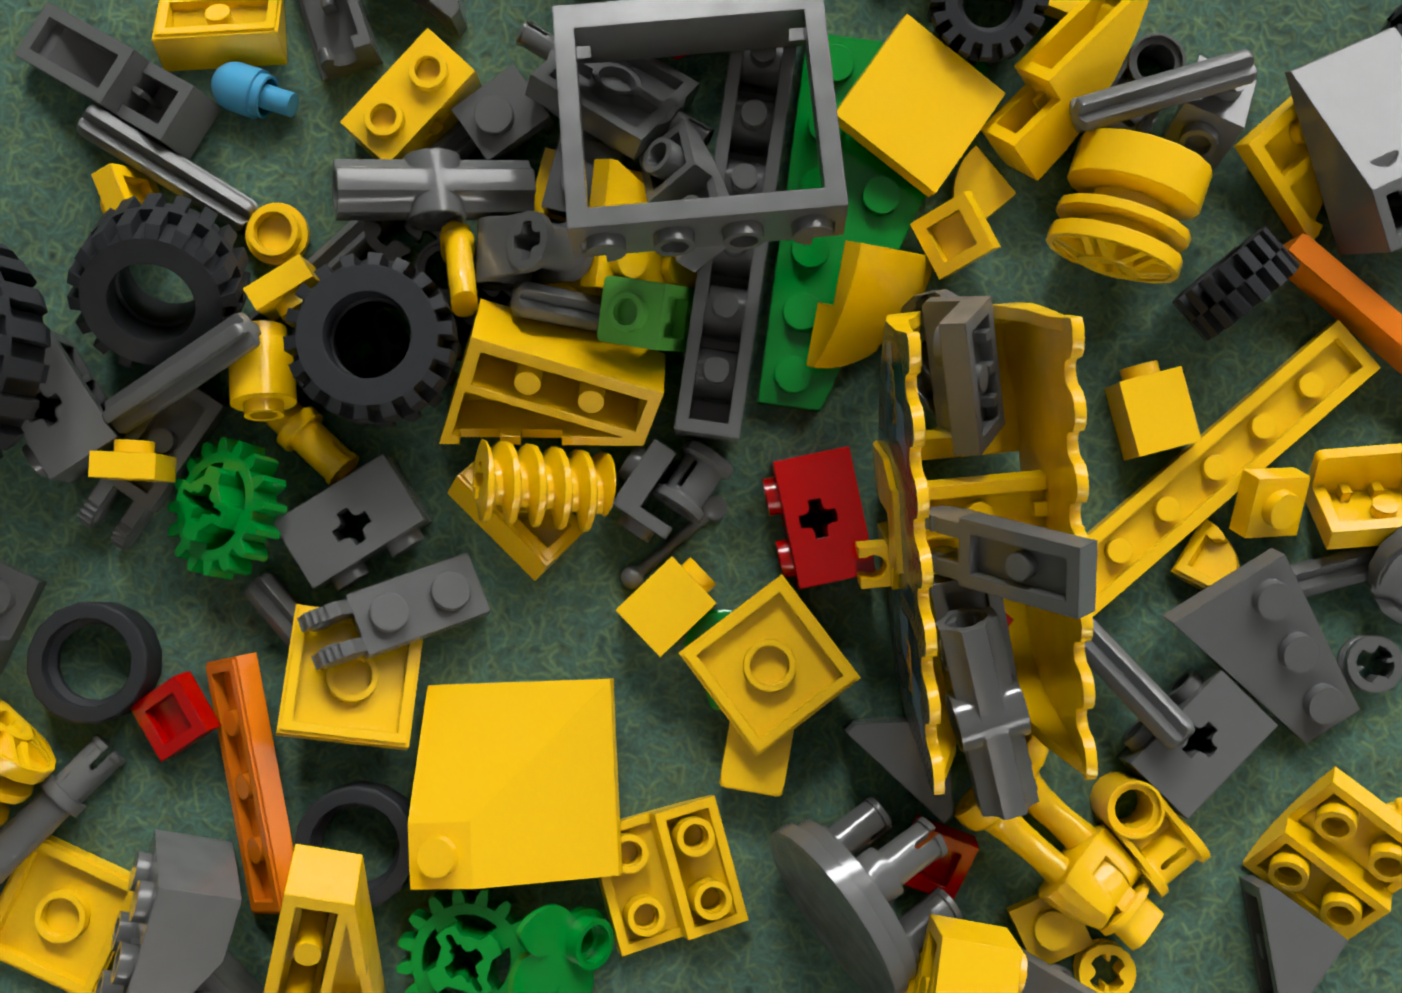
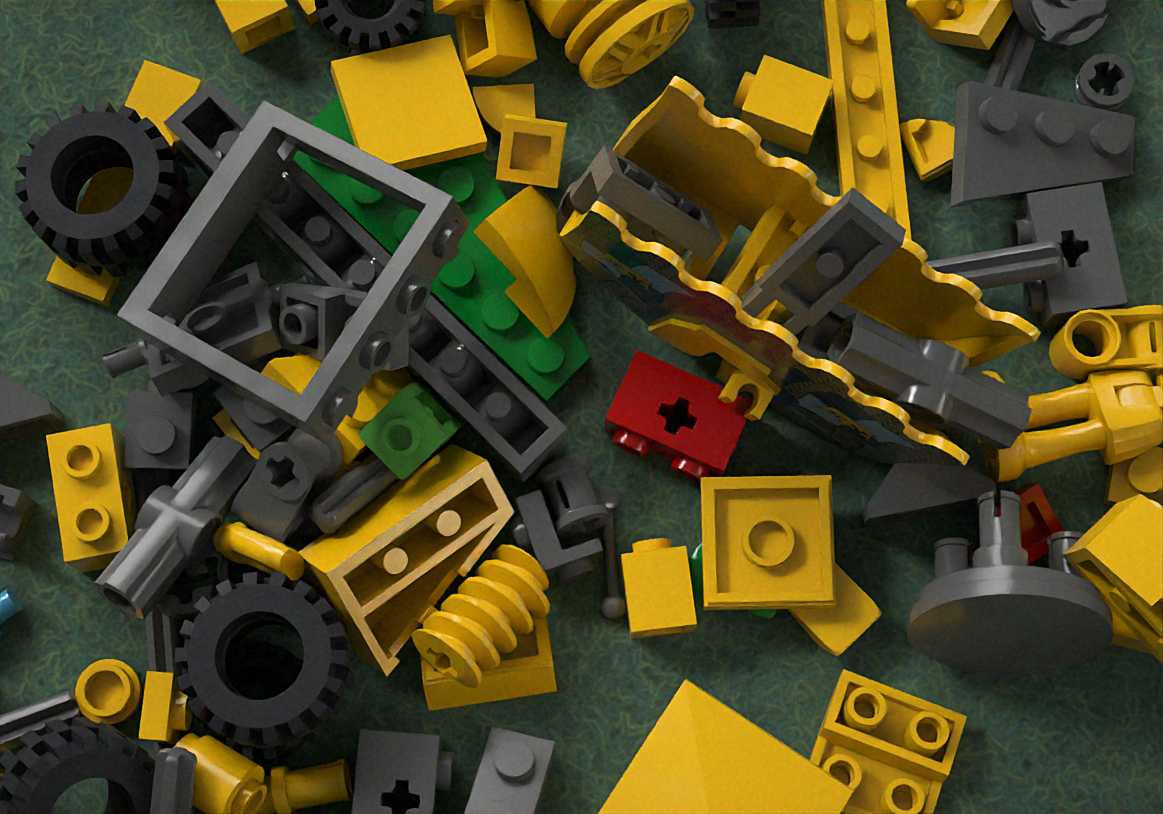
camera: 50 degrees left, 10 degrees down
(1269, 502) = (921, 67): yellow plate -> none

